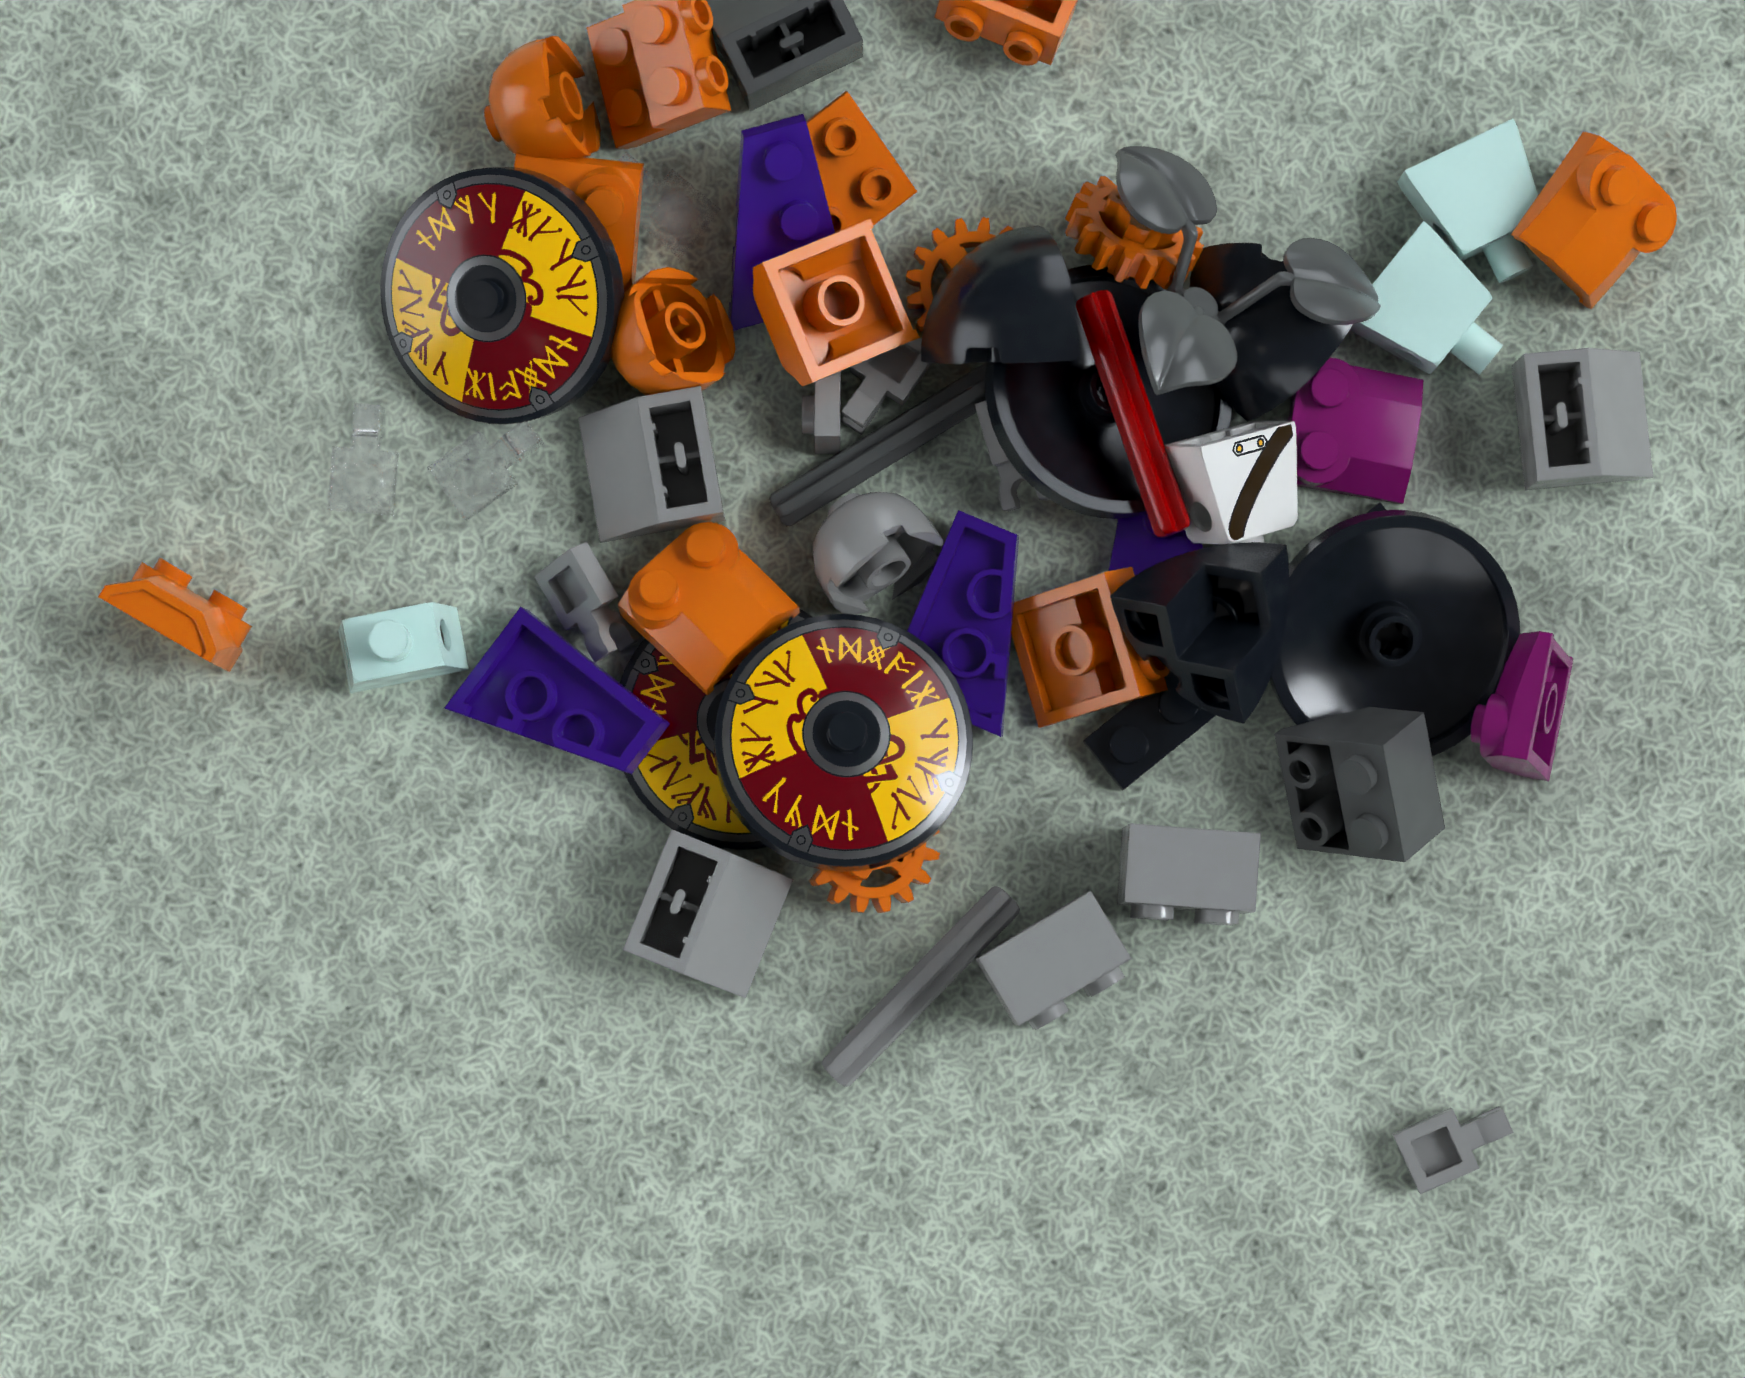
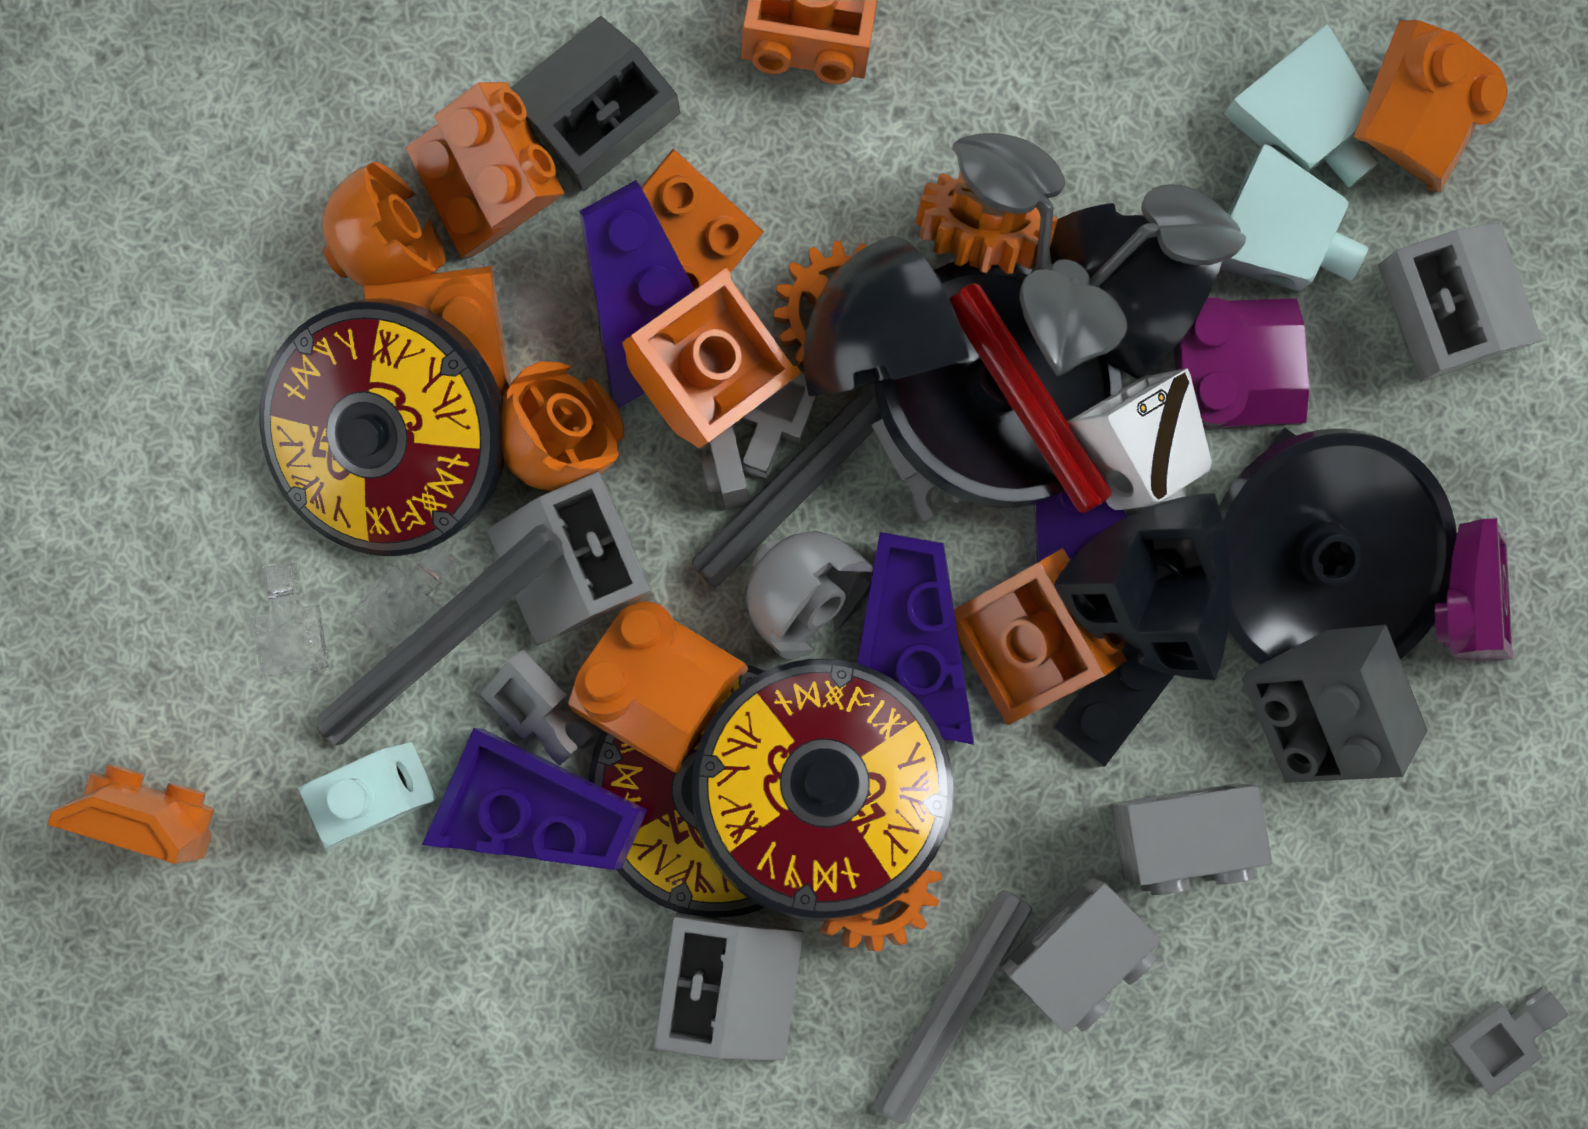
camera: 15 degrees left, 0 degrees up
(510, 508) = (440, 634): none -> dark grey axle

